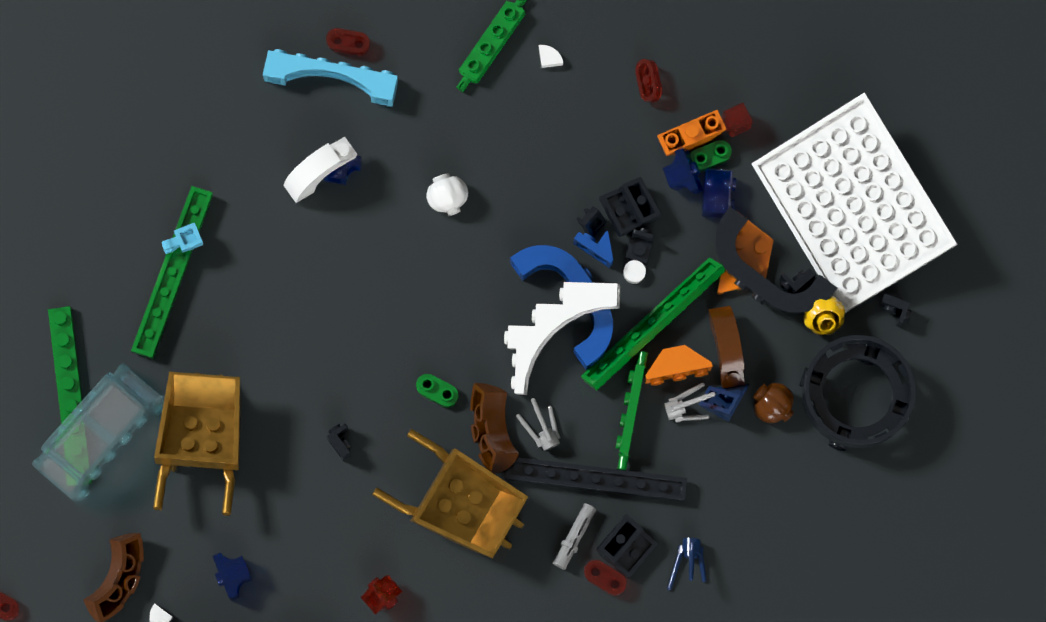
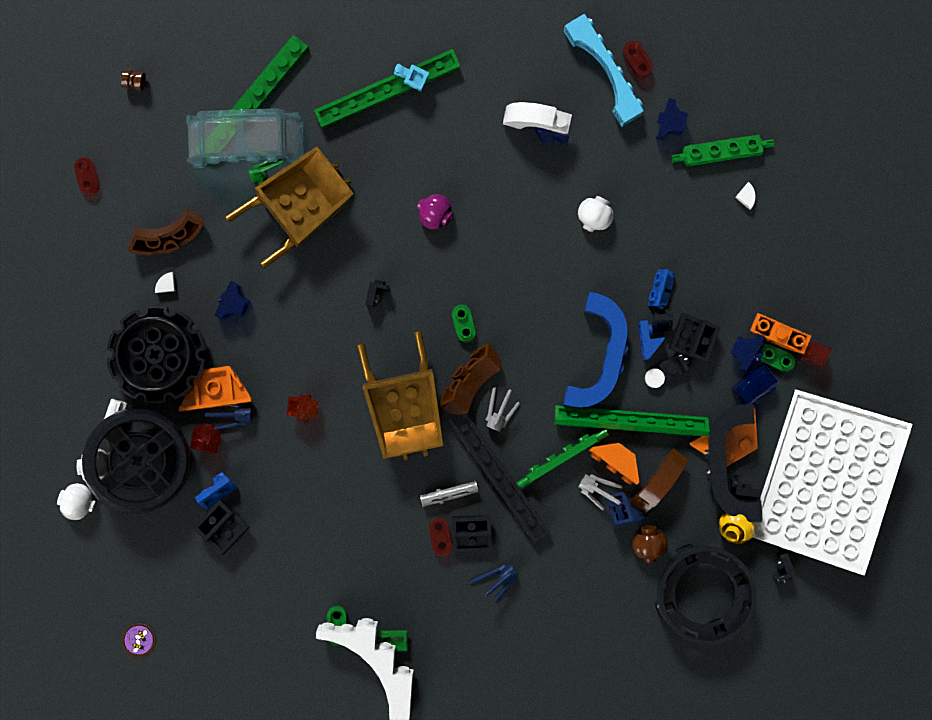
camera: 55 degrees right, 10 degrees up
(139, 447) = (259, 172): none -> green plant
(317, 327) = (435, 211): none -> magenta plant
(426, 61) = (671, 120): none -> clear blue brick
(549, 318) = (547, 353): white arch -> none
(556, 189) = (662, 280): none -> blue hinge
(648, 80) = (789, 274): clear red plate -> none

